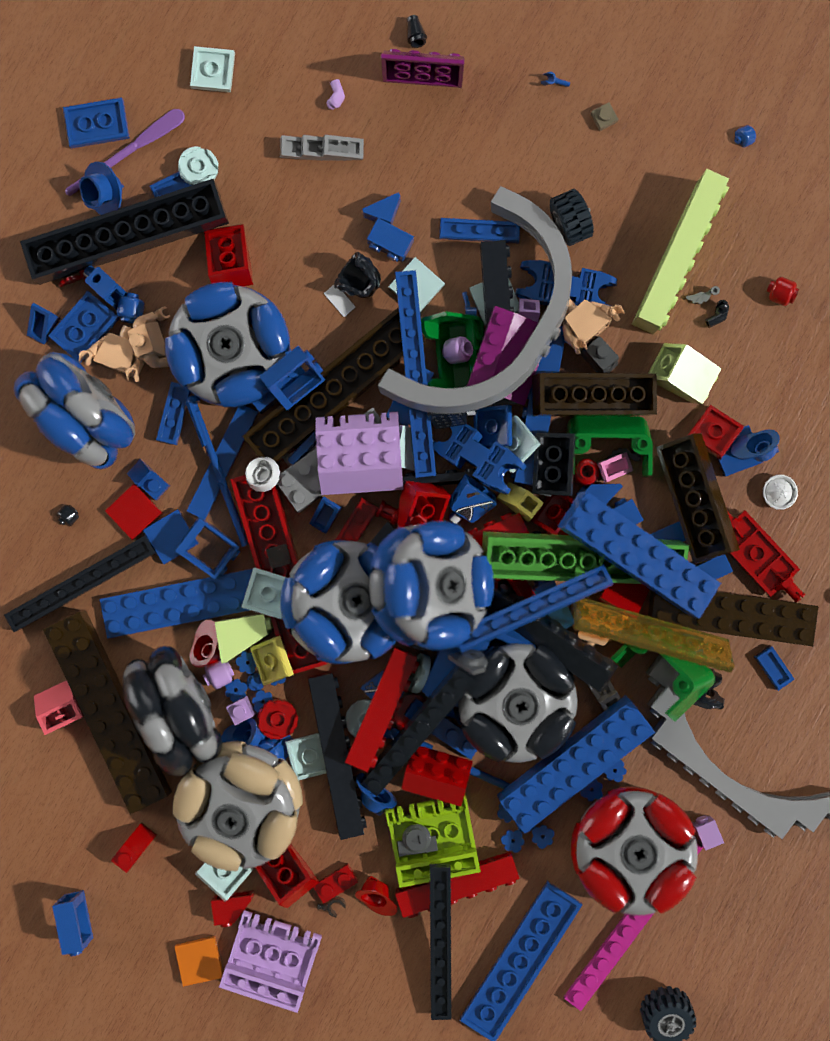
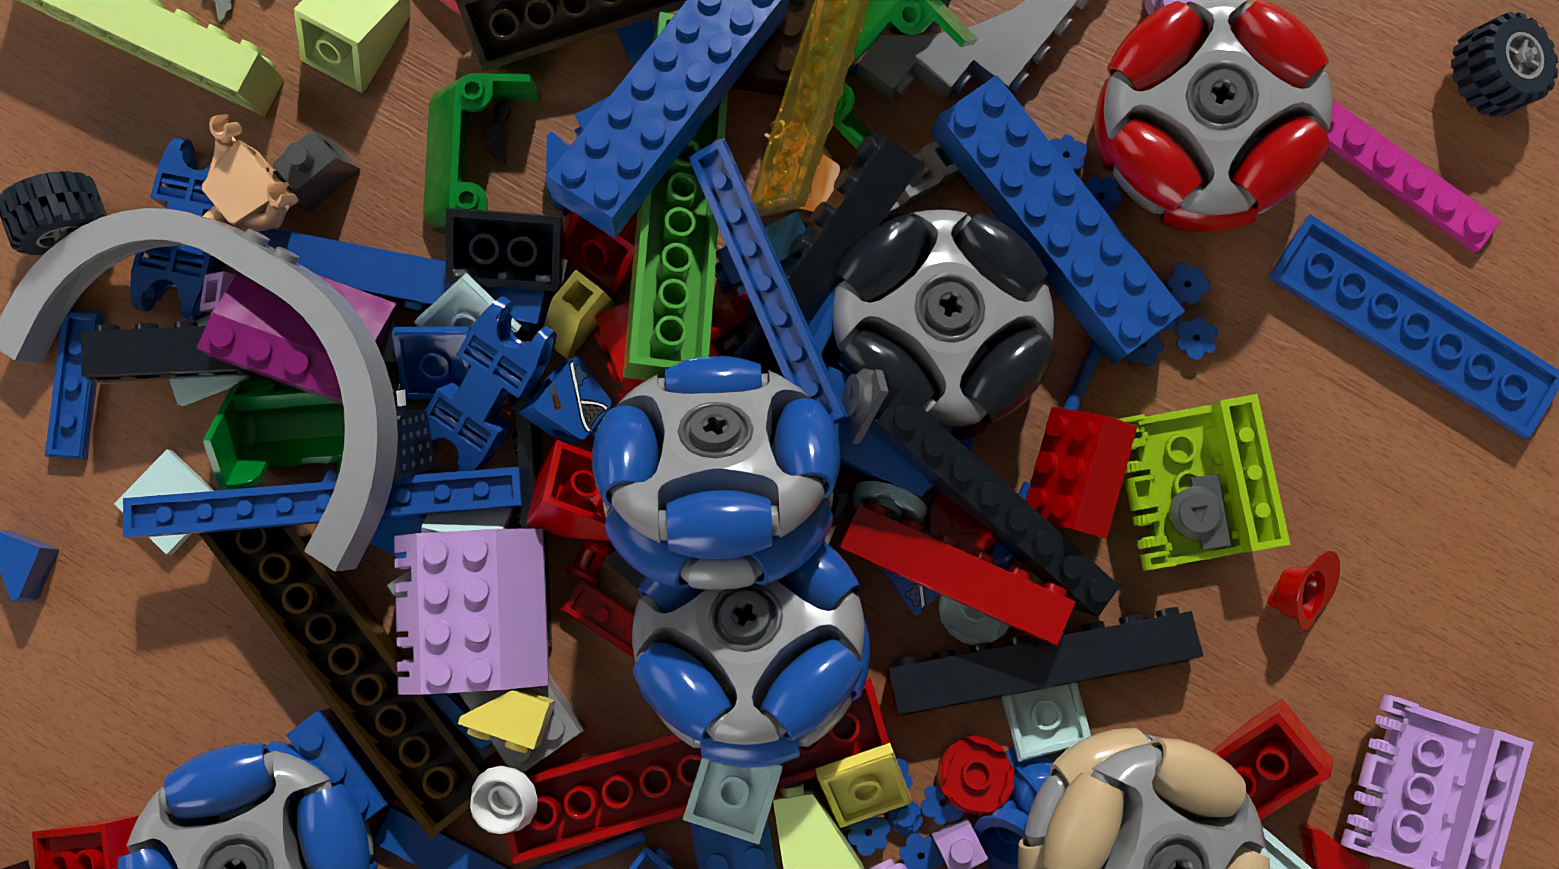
camera: 90 degrees left, 5 degrees down
(279, 556) = (662, 769): clear smoke plate -> none
(301, 386) = (338, 722): blue window -> none
(305, 478) = (514, 717): none -> light yellow slope
(325, 515) = (589, 678): blue slope -> none
(327, 906) = (1326, 683): clear smoke piece -> none
(335, 883) = (1283, 666): red plate -> none
(339, 300) = (189, 647): white sticker -> none
(358, 277) = (140, 608): black hair -> none
(374, 803) = (1133, 589): blue piece -> none
(390, 240) = (78, 550): blue brick -> none
(440, 941) = (1386, 469): black plate -> none
(447, 732) = (999, 453): blue plate -> none
(457, 350) = (288, 425): lavender head -> none
(469, 310) = (209, 408): blue hand -> none
(493, 873) = (1252, 368): red brick -> none
(591, 469) = (524, 193): red head -> none
(594, 394) = (379, 178): dark brown brick -> none
(615, 467) = (518, 148): bright pink slope -> none
(625, 596) = (748, 128): red tile -> none

